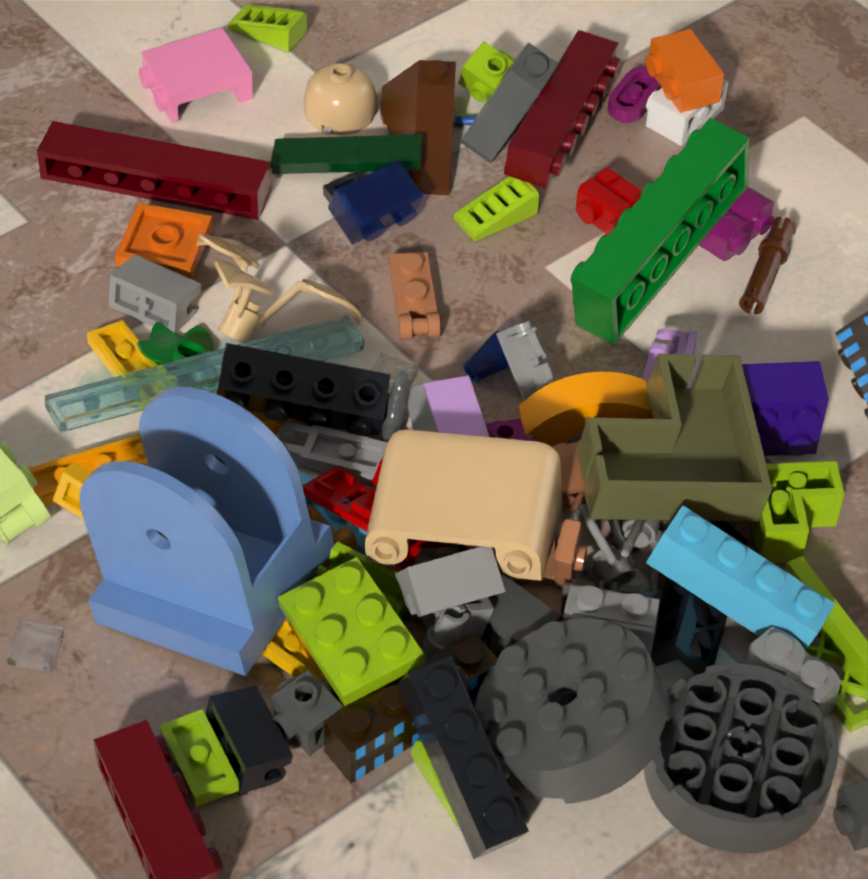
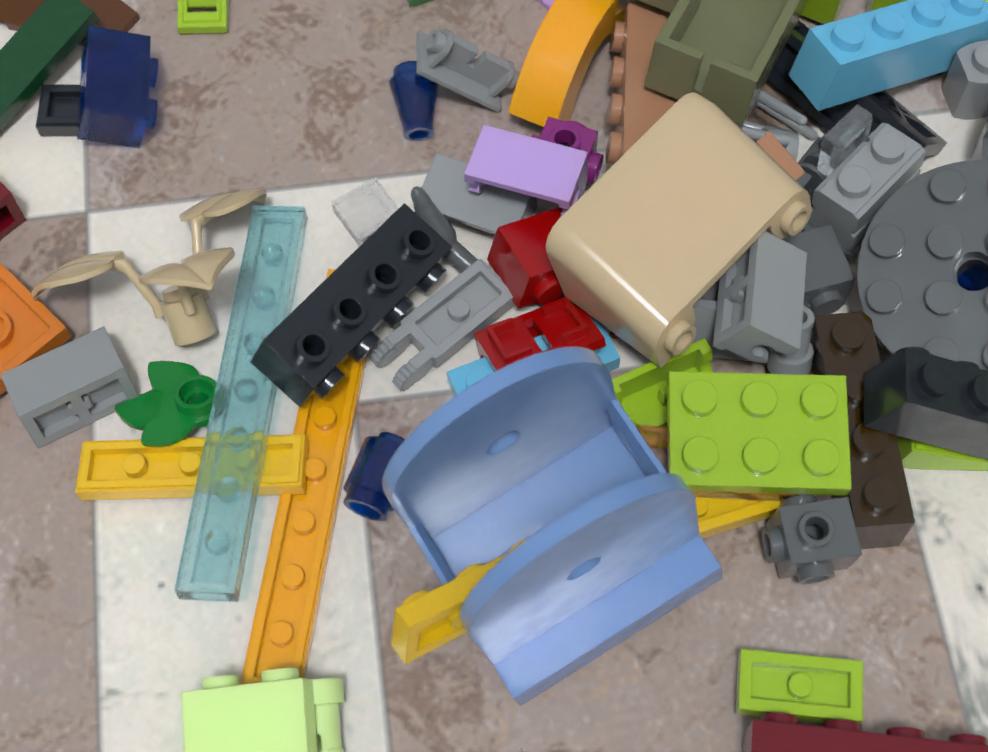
camera: 55 degrees left, 15 degrees up
(248, 737) = (805, 617): black hinge -> none
(414, 295) = (268, 128): nougat plate -> none
(625, 577) = (844, 139): none -> clear tile

